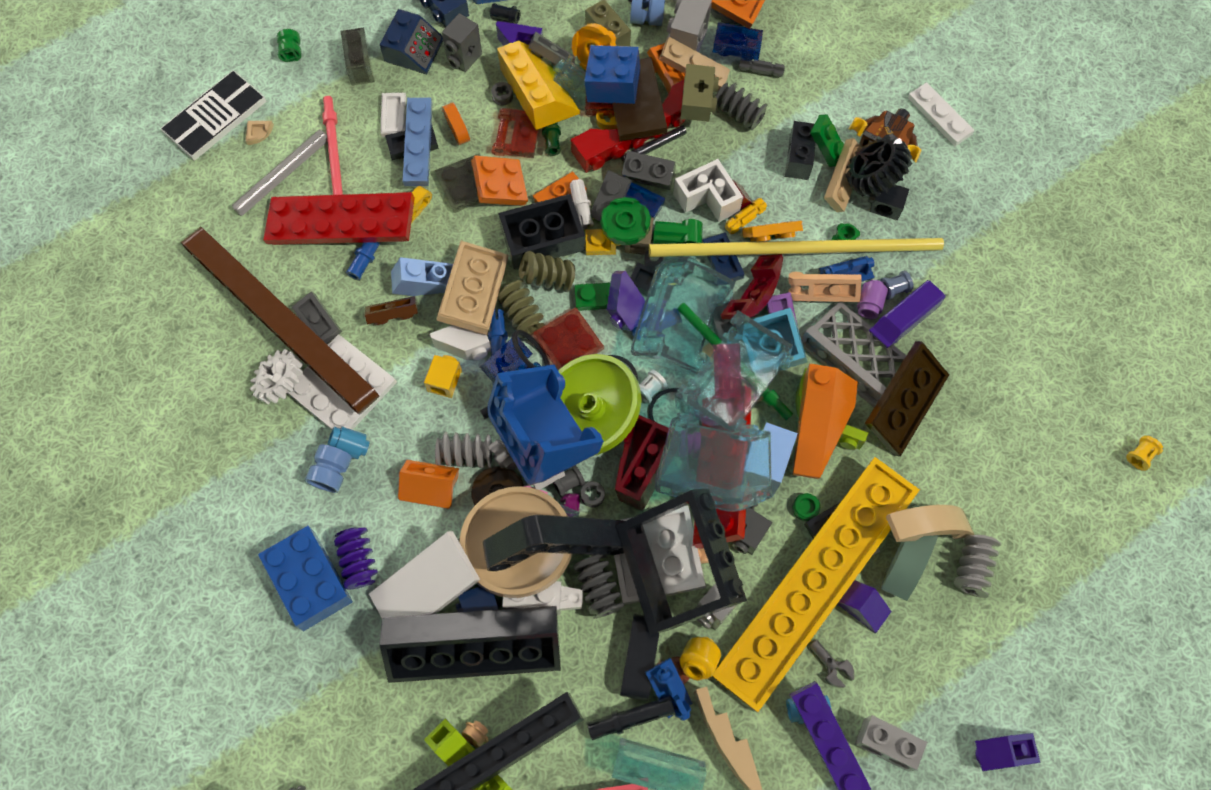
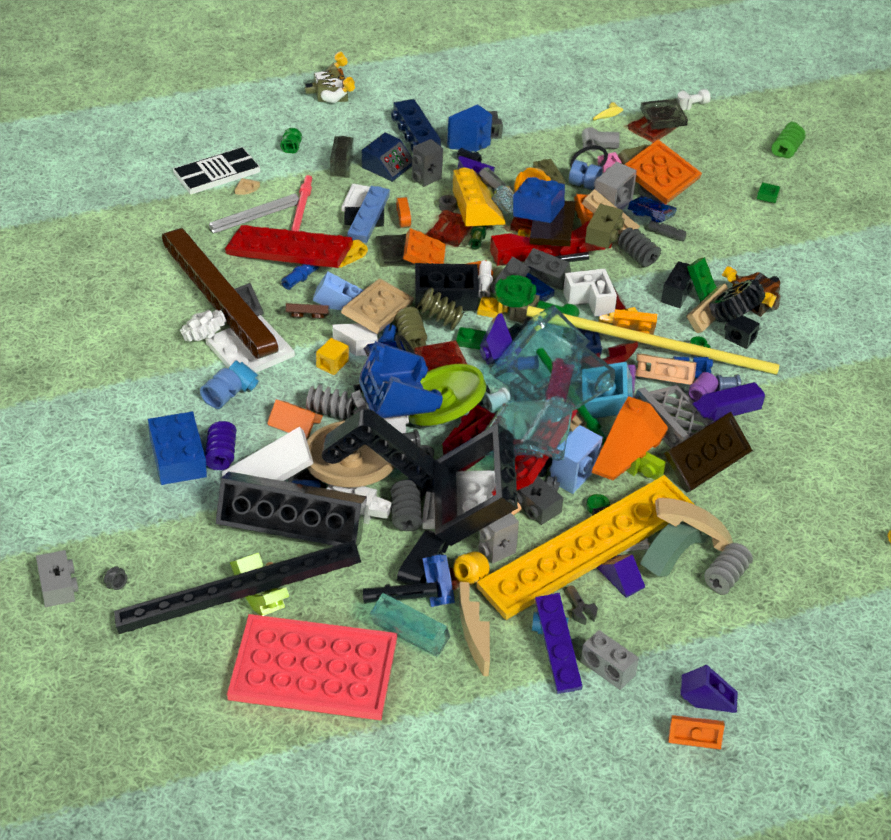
camera: 15 degrees right, 25 degrees down
(941, 114) = (809, 290): white plate -> none

